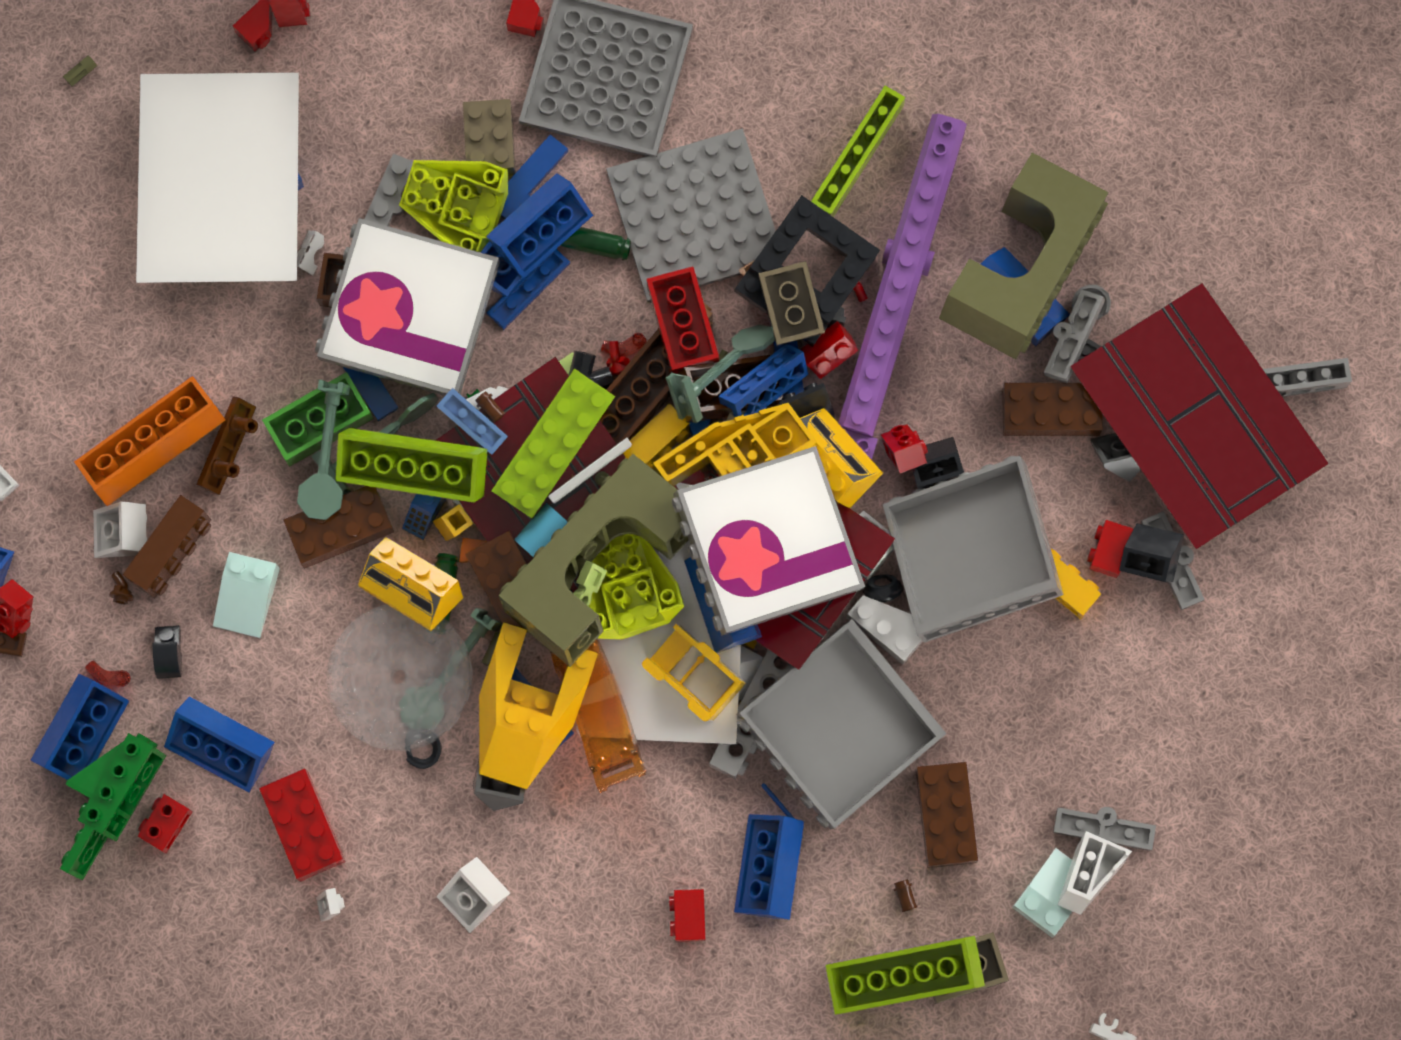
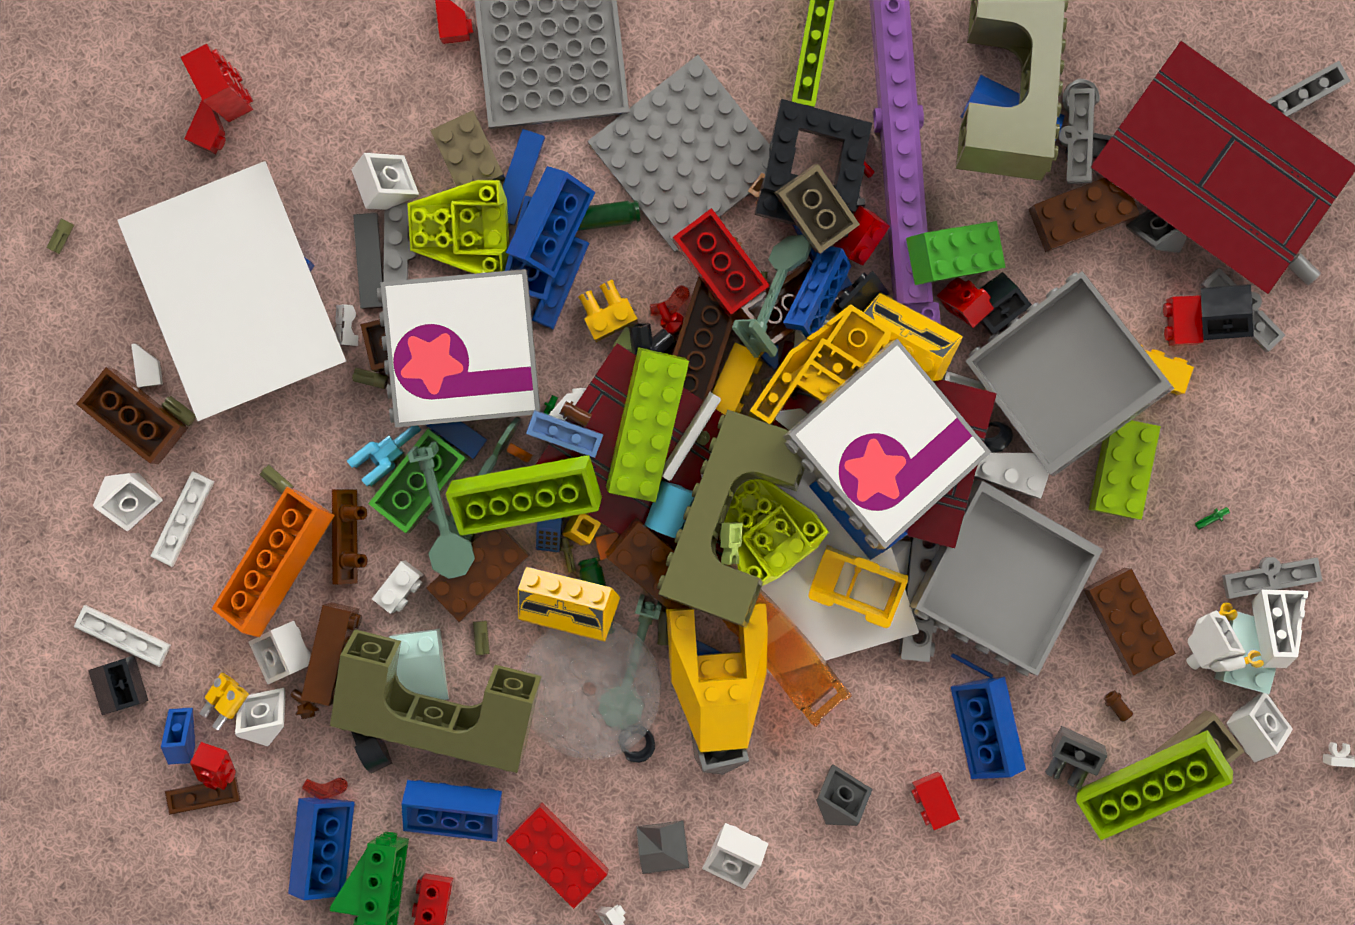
camera: 25 degrees left, 10 degrees up
(37, 332) = (126, 499): none -> white slope
(50, 550) = (226, 698): none -> yellow piece
(76, 257) = (132, 416): none -> reddish brown brick
(76, 582) = (261, 716): none -> white slope
(81, 371) = (182, 519): none -> white tile
(107, 220) = (146, 368): none -> white tile
(121, 271) = (179, 410): none -> olive piece
(183, 366) = (275, 479): none -> olive piece
(191, 609) = (379, 706): none -> olive arch
(257, 511) = (398, 586): none -> white brick
(293, 382) = (382, 455): none -> medium azure plant
(311, 308) = (370, 378): none -> olive piece
(315, 591) = (481, 637): none -> olive piece
(356, 198) = (368, 258): none -> dark grey tile
(401, 132) = (384, 180): none -> white slope
(406, 860) = (662, 847): none -> dark grey slope
(421, 428) = (518, 452): none -> orange tile
(431, 539) = (567, 551): none -> olive piece
(560, 339) = (611, 319): none -> yellow brick
(599, 877) = (842, 798): none -> dark grey slope
(848, 921) = (1076, 750): none -> dark grey brick
(910, 397) = (955, 252): none -> bright green brick
(998, 666) = (1125, 470): none -> lime brick
(1022, 867) = (1217, 645): none -> white torso
(1037, 969) = (1260, 727): none -> white slope
(1068, 749) = (1217, 515): none -> green piece
(1246, 542) = (1304, 269): none -> light grey piece

